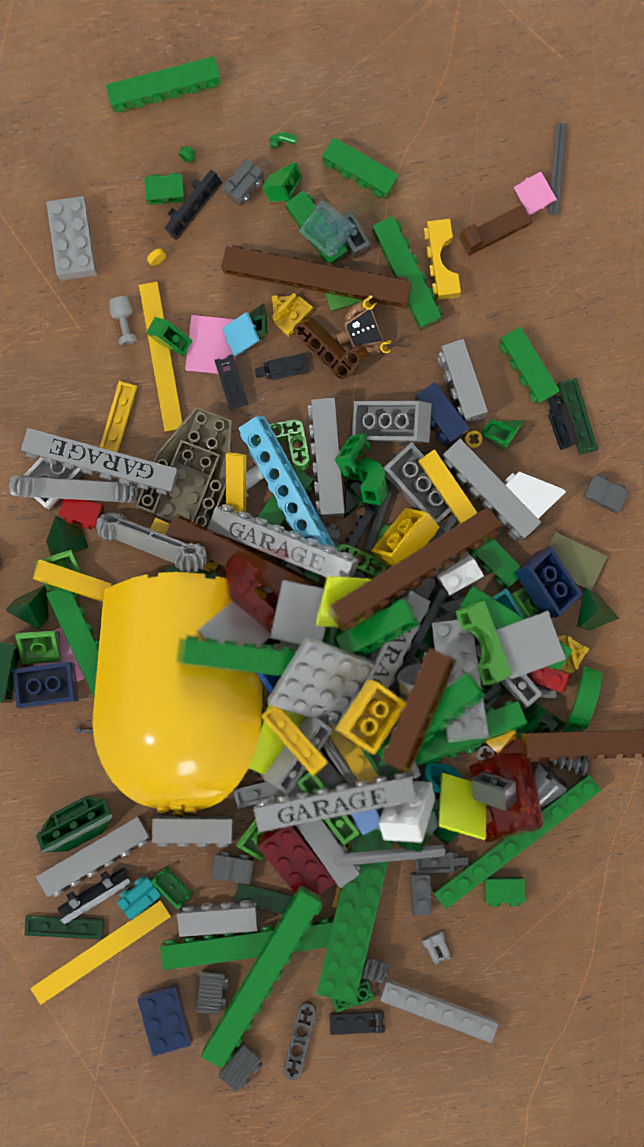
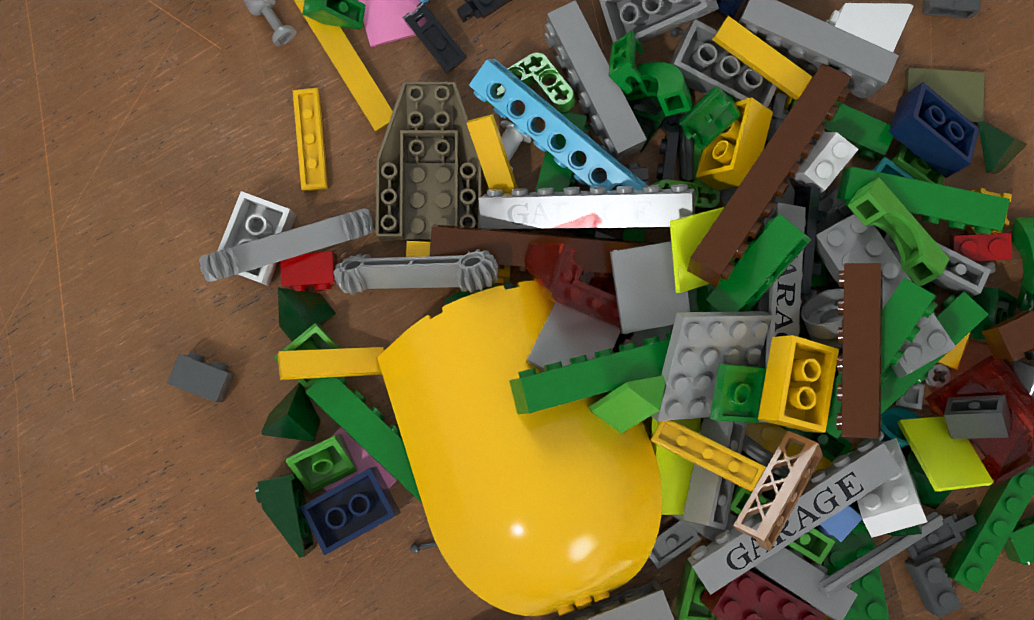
camera: 30 degrees left, 0 degrees up
(100, 461) = (306, 195): light grey brick -> none
(254, 684) = (630, 403): none -> bright green slope
(329, 706) = (737, 393): none -> green plate
(333, 782) = (787, 496): none -> medium nougat fence
(396, 513) = (709, 117): none -> green hinge
(461, 762) = (913, 397): none -> light grey tile
(530, 644) = (956, 210): light grey piece -> none

